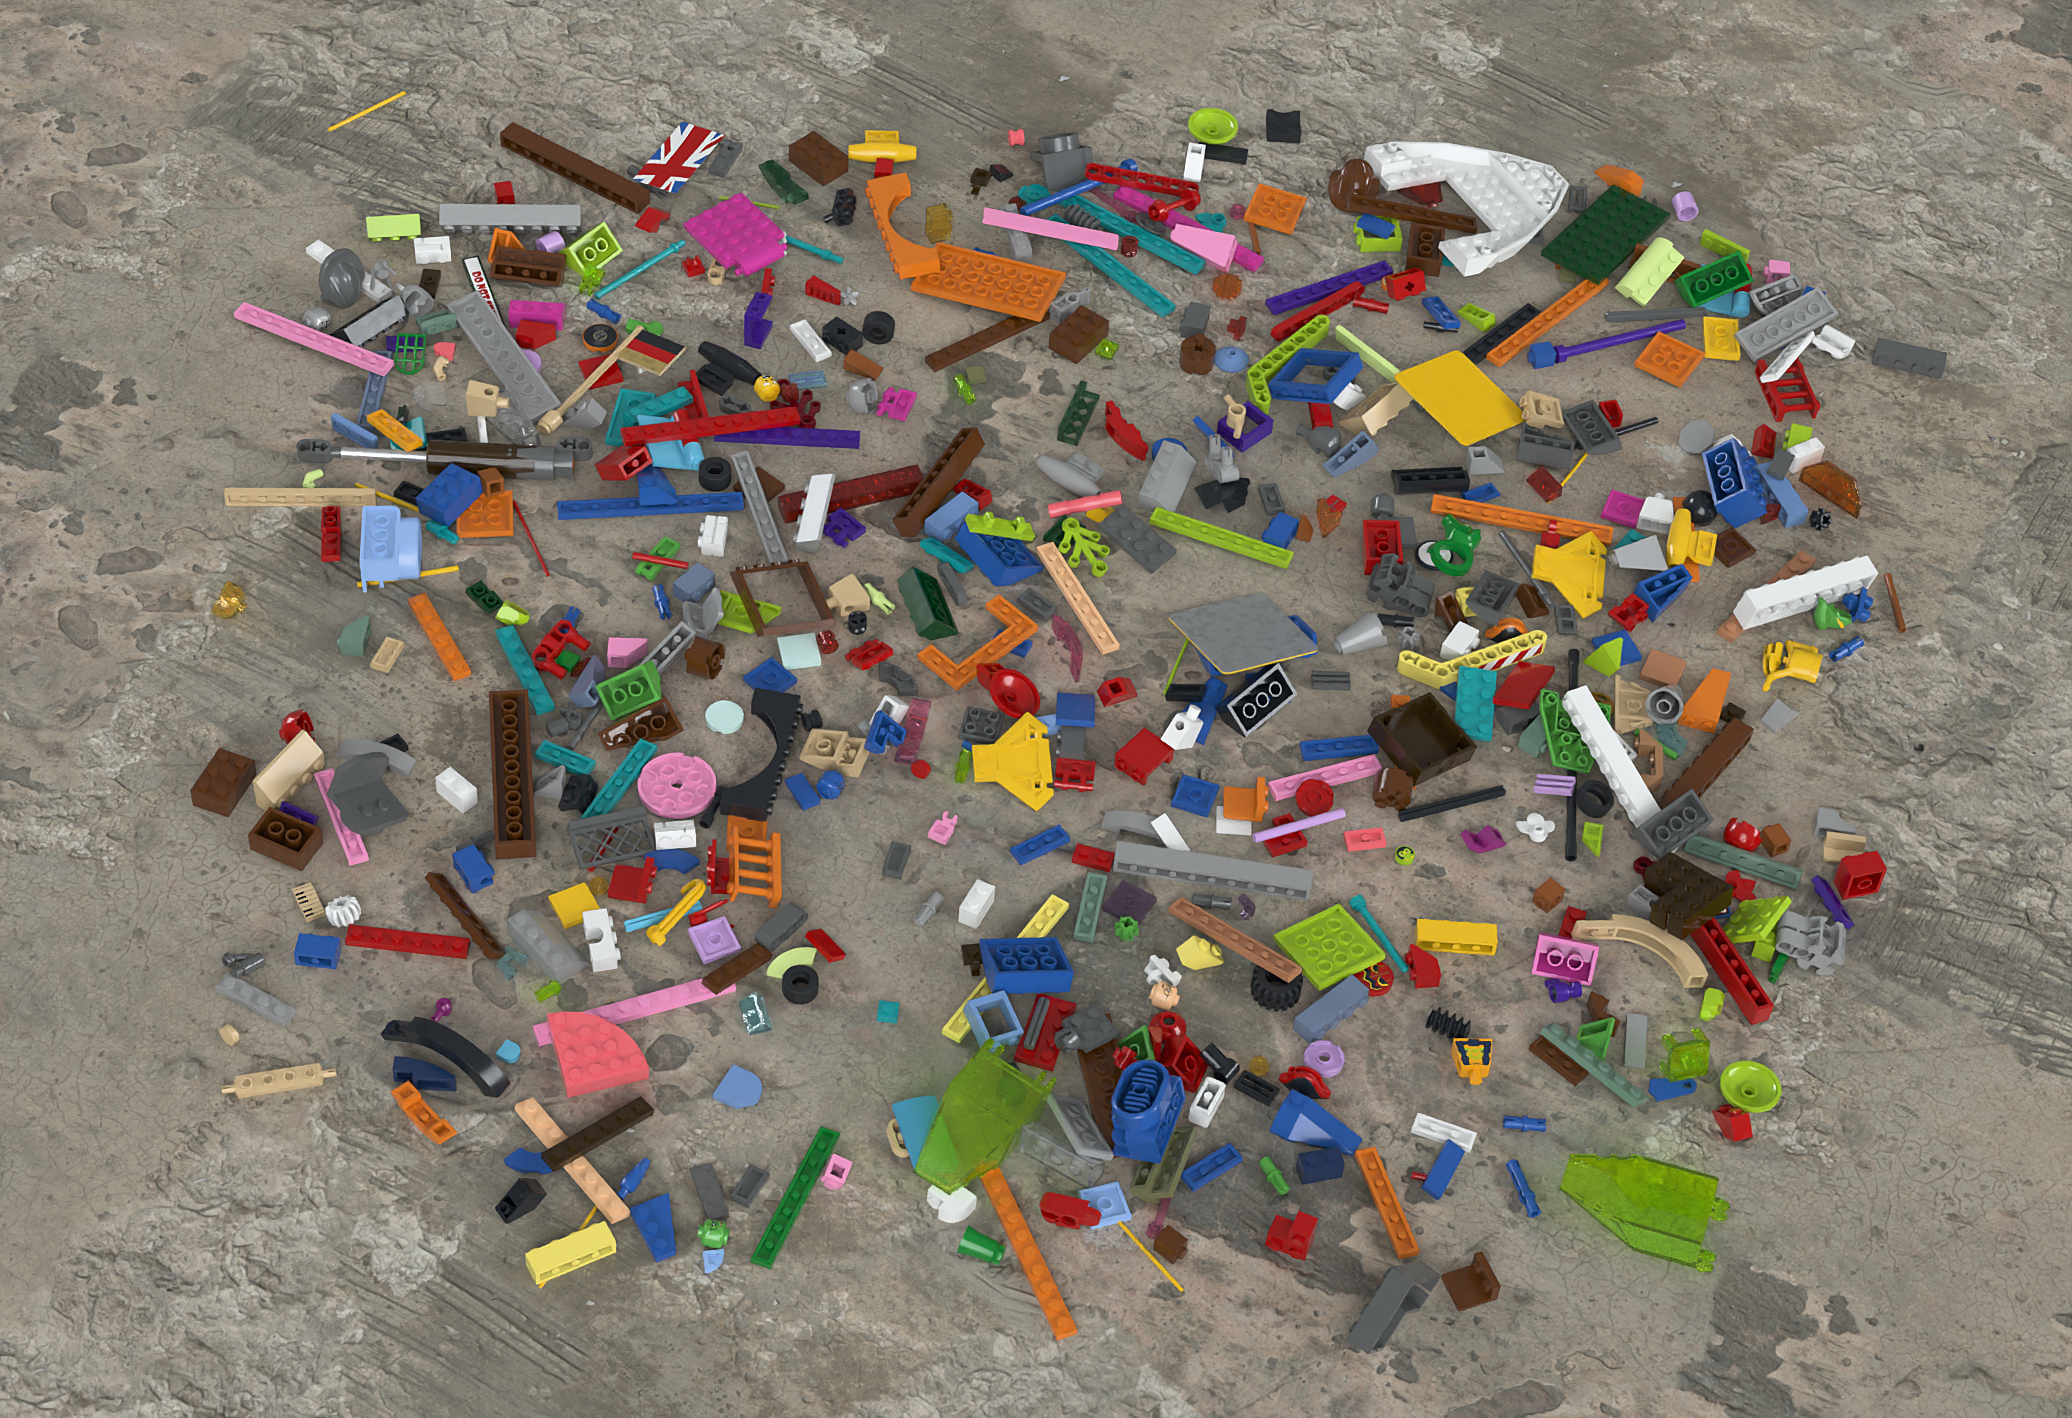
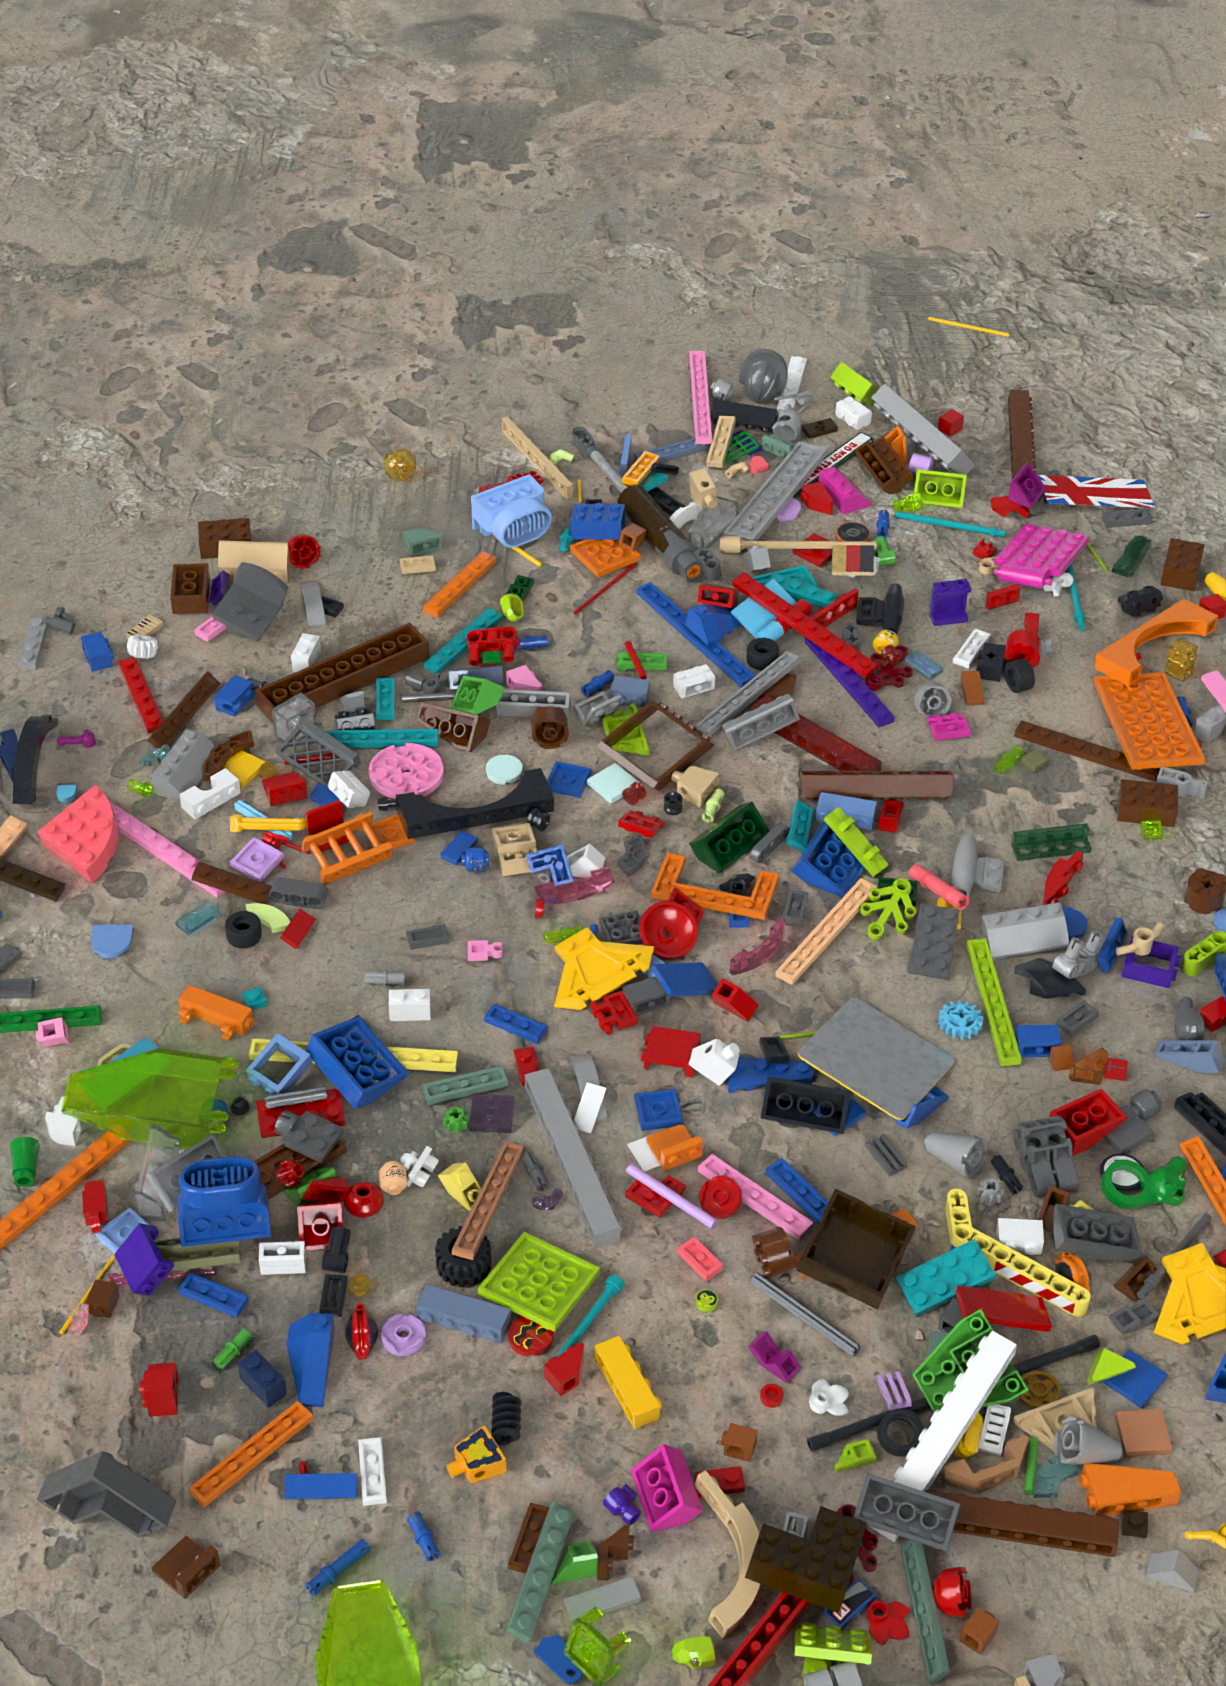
camera: 65 degrees right, 5 degrees down
(402, 360) = (720, 441): none -> tan plate
(552, 834) = (289, 713): none -> clear brick
(552, 911) = (223, 752): none -> reddish brown tile
(651, 194) = (1026, 487): none -> magenta slope
(846, 524) = (778, 753): dark purple plate -> none
(852, 308) = (1023, 645): none -> red brick
(889, 1042) = (215, 1010): none -> orange brick
(986, 627) = (737, 884): none -> black animal
(1158, 1195) = (142, 1260): none -> dark purple panel
(1183, 1268) = (79, 1319): none -> clear tile
(1229, 566) = (960, 1020): none -> medium azure gear
(1513, 859) = (771, 1395): none -> red tile
(1630, 612) = (1187, 1367): red cylinder -> none

